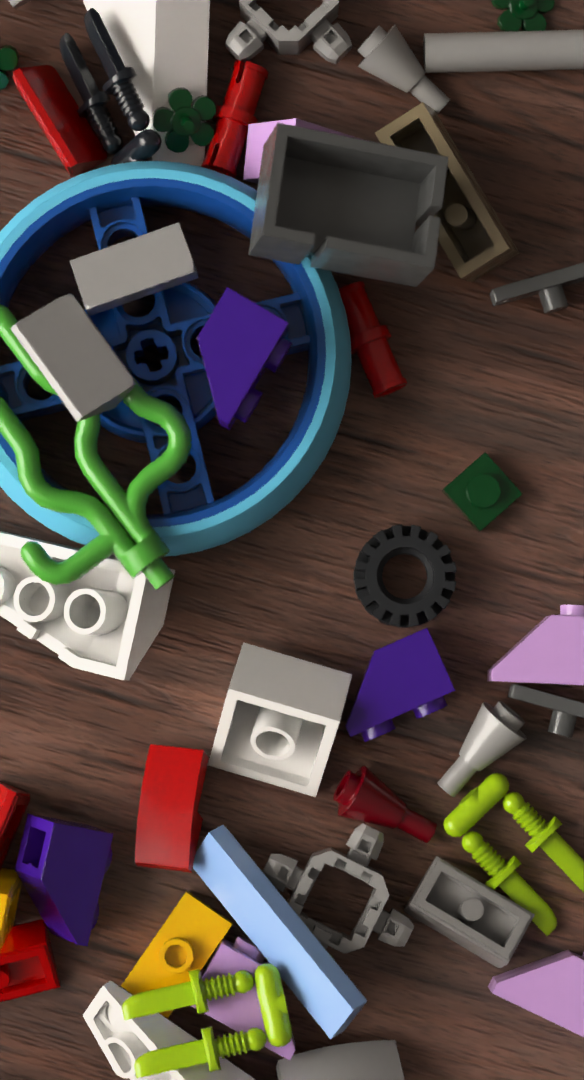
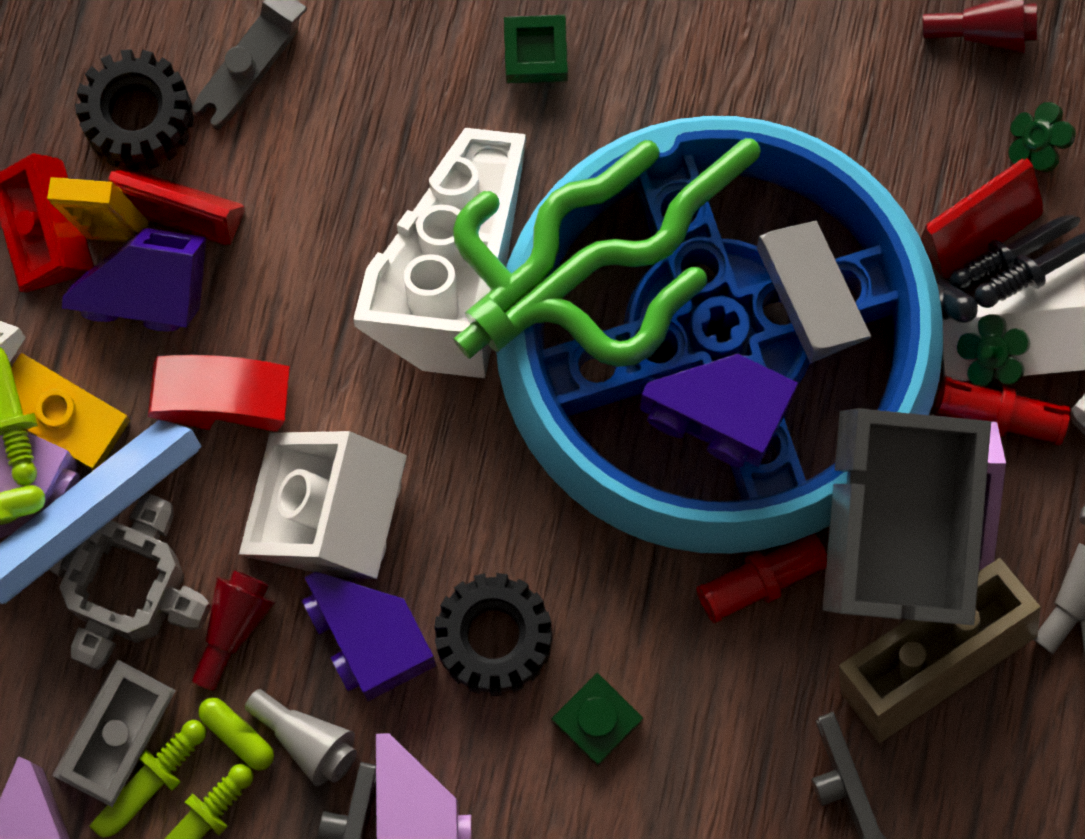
camera: 90 degrees right, 10 degrees down
(74, 357) = (704, 227): light grey slope -> none

